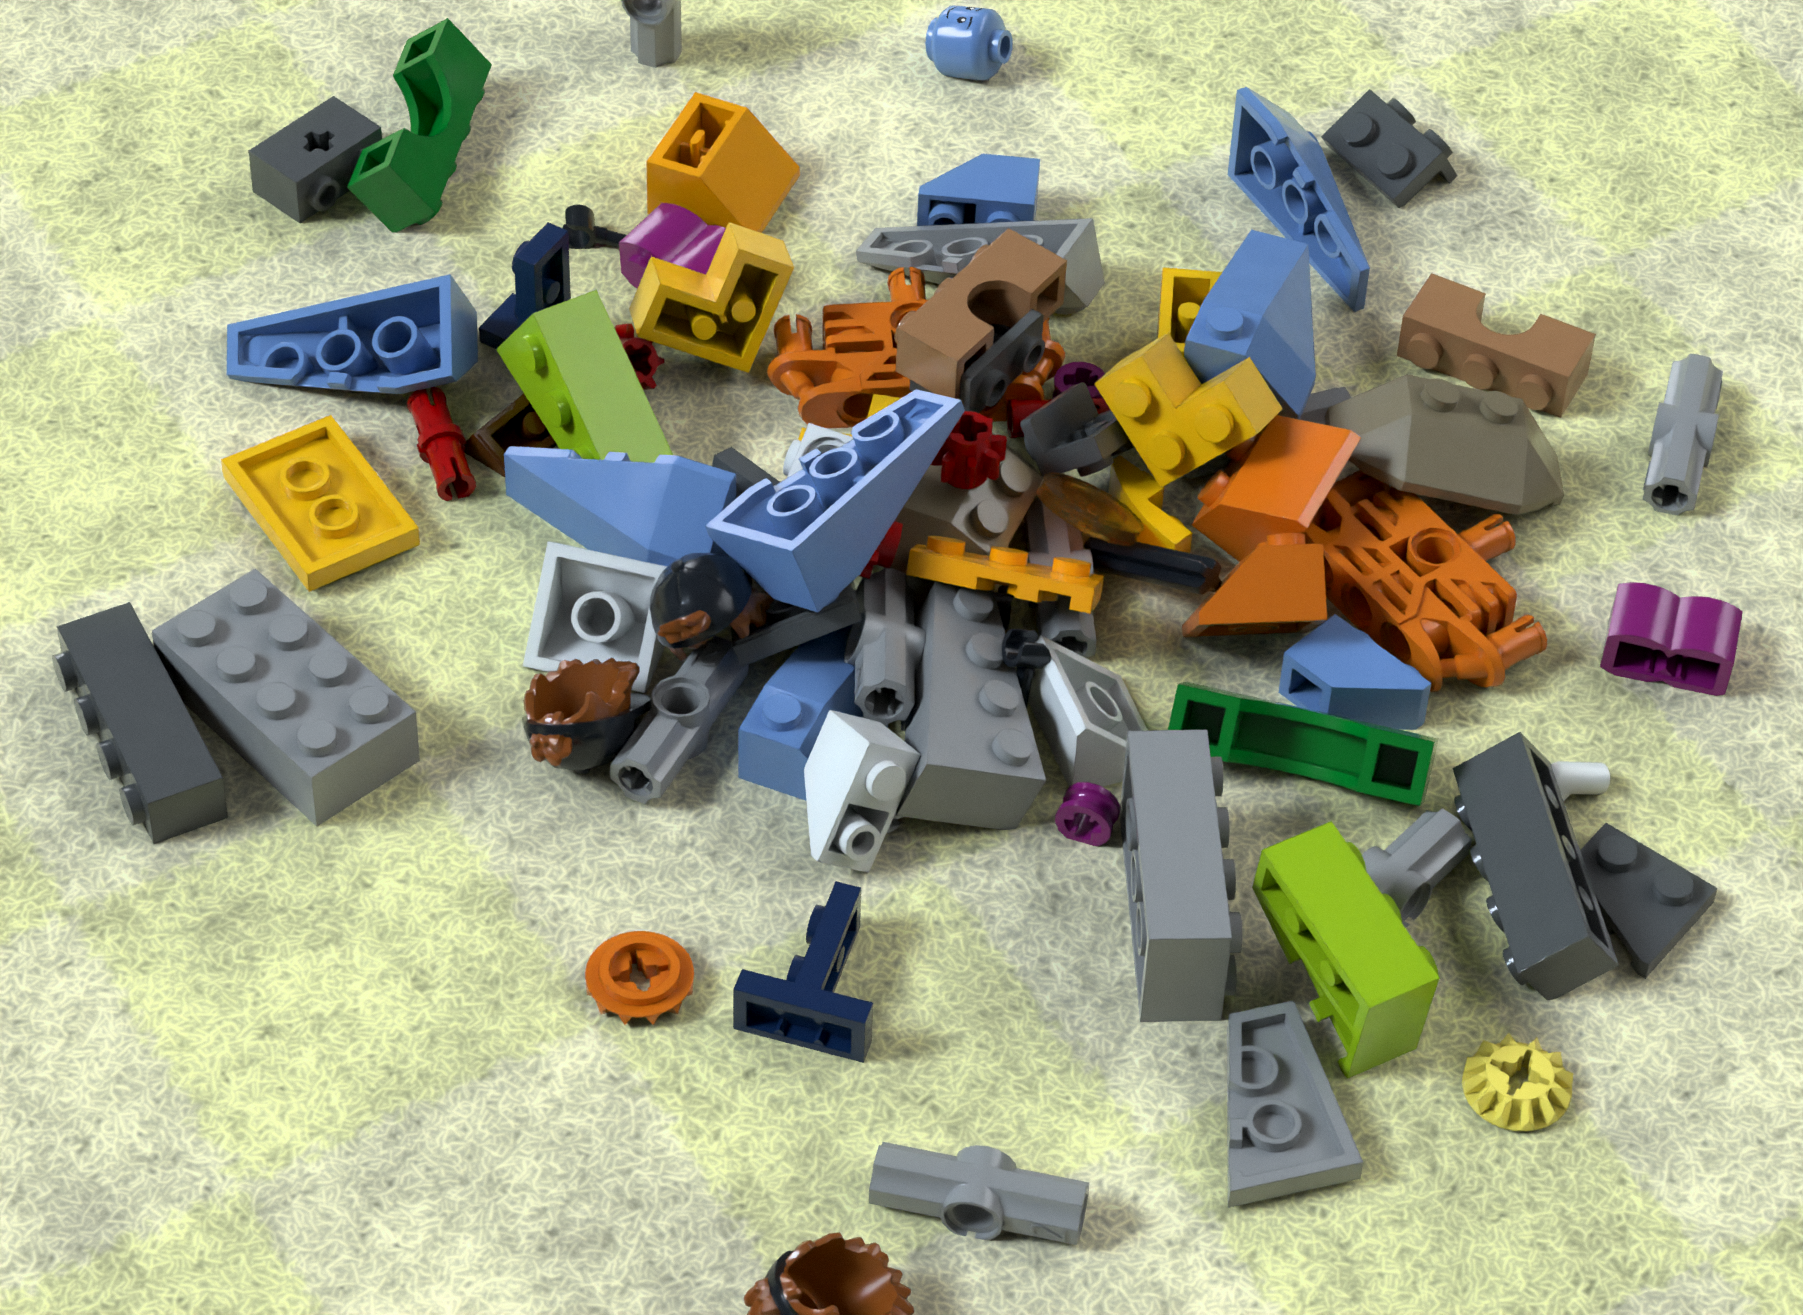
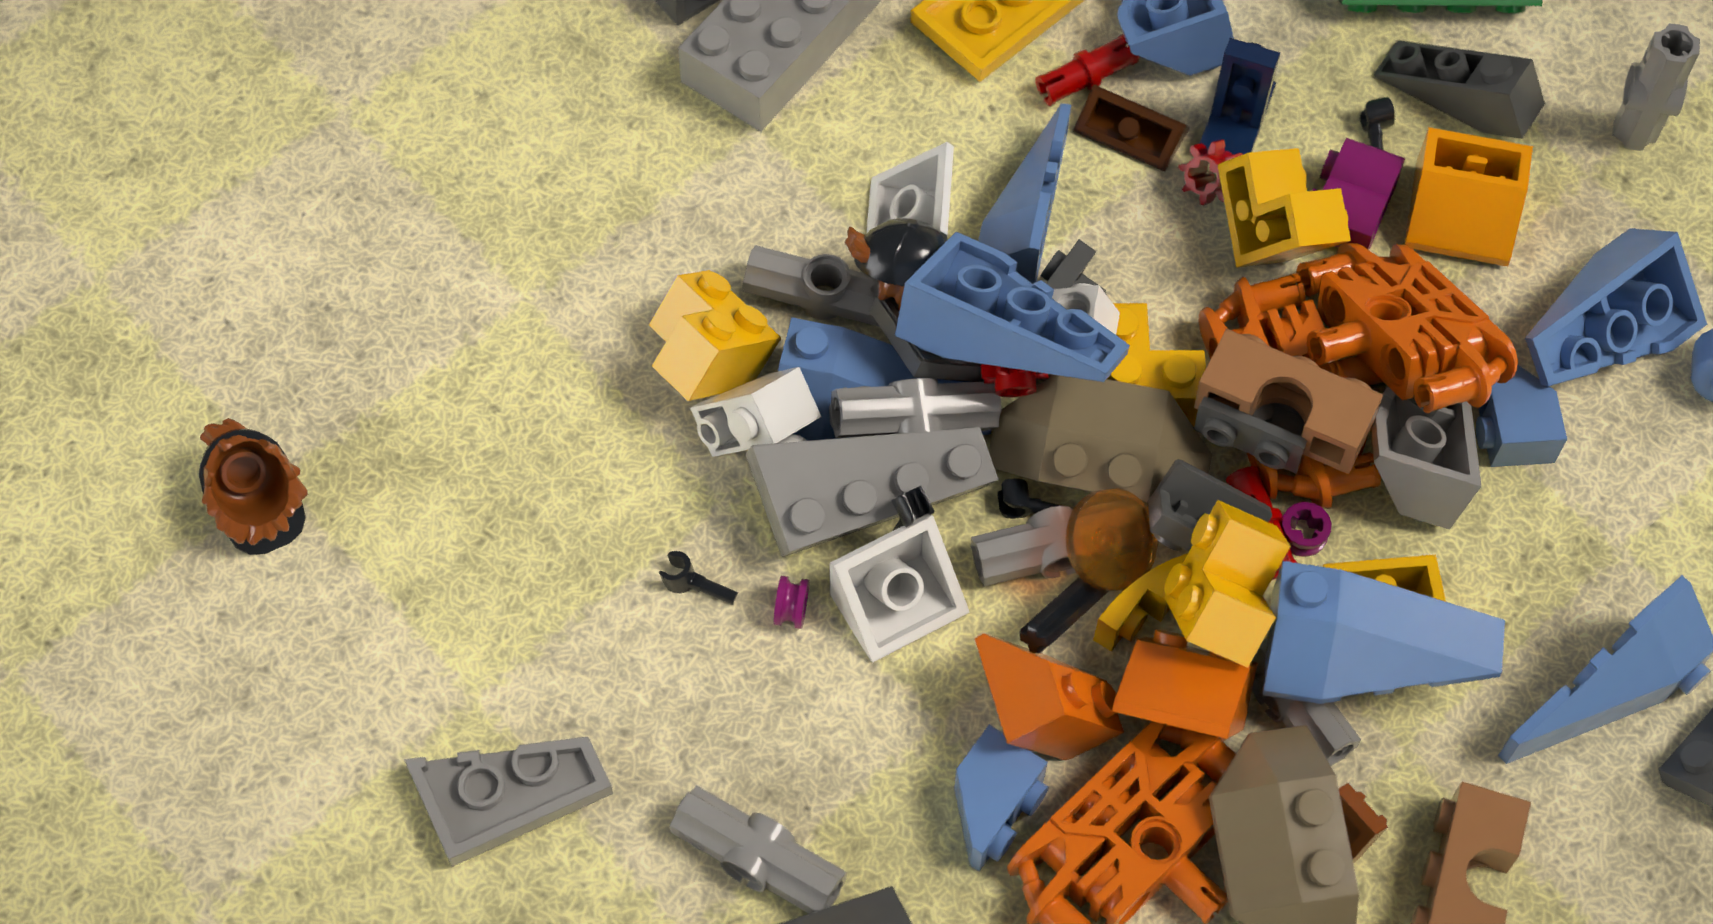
camera: 80 degrees right, 15 degrees up
(571, 145) = (1475, 87): none -> dark grey slope
(582, 713) = (799, 212): dark orange hair -> none
(583, 382) = (1137, 143): lime wedge -> none
(659, 960) = (573, 294): orange gear -> none
(742, 810) = (709, 337): none -> yellow brick
(804, 1005) = (574, 429): dark blue bracket -> none
(880, 86) = (1620, 306): none -> medium blue wedge
(894, 229) = (1406, 326): none -> orange piece
(948, 563) = (996, 489): light orange wing -> none
(971, 452) = (1115, 415): red gear -> none
(979, 1192) = (384, 579): light grey piece -> none
(1034, 904) = (689, 579): none -> black hand
(1178, 876) = (710, 666): light grey brick -> none
(1308, 742) = (905, 694): green arch -> none
(1351, 943) = (639, 801): lime wedge -> none

